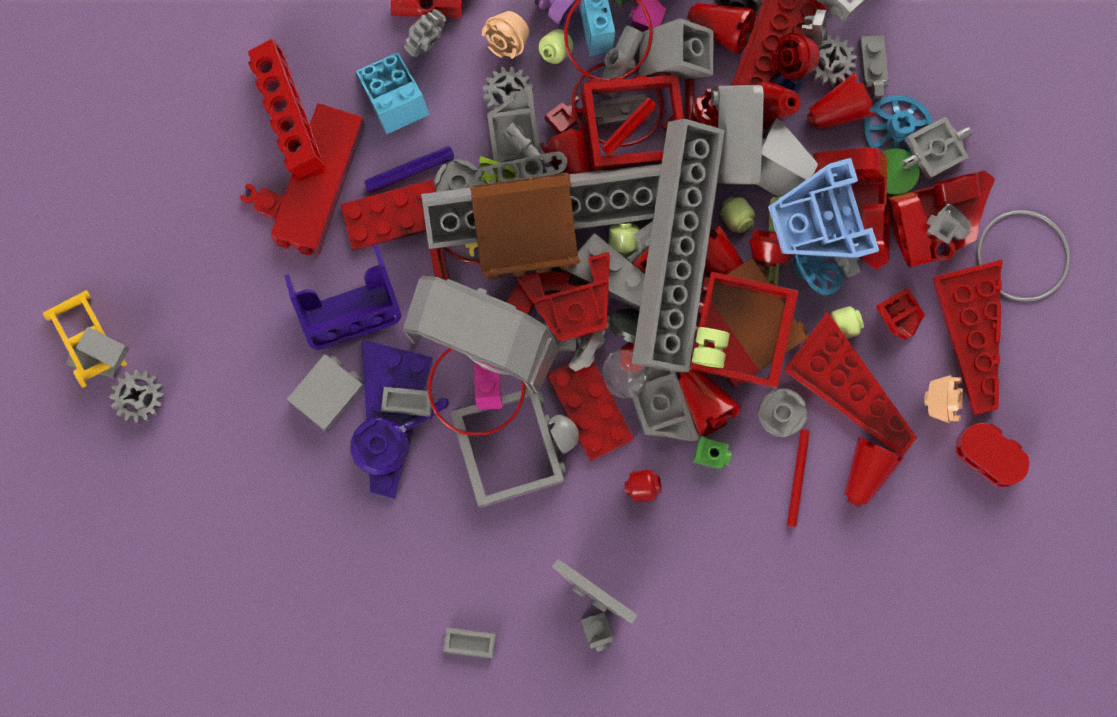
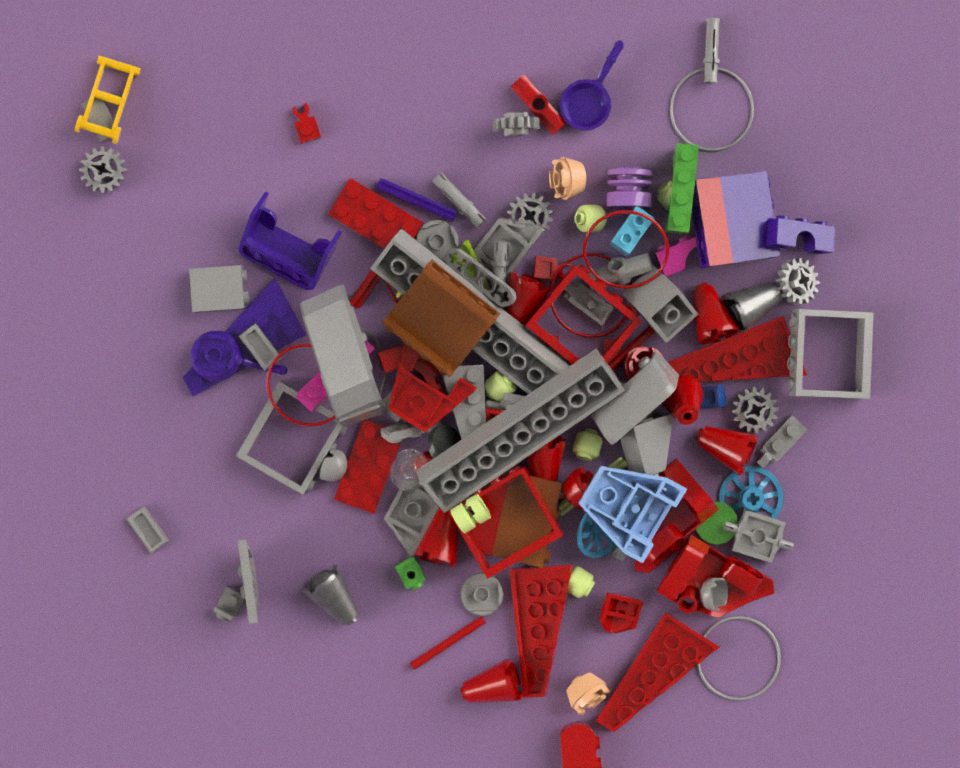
camera: 55 degrees right, 10 degrees up
(102, 348) = (111, 119): light grey tile -> none
(308, 157) = (358, 131): red brick -> none
(313, 198) = (351, 147): red brick -> none
(393, 93) = (457, 139): medium azure slope -> none
(449, 135) = (463, 204): none -> light grey pin
(629, 126) = (573, 323): red axle -> none
(643, 485) = (348, 548): red head -> none
(671, 534) = (332, 594): none -> flat silver cone
(795, 56) = (730, 387): red cone -> none
(816, 26) = (767, 382): light grey tile -> none
(943, 226) = (698, 590): light grey tile -> none

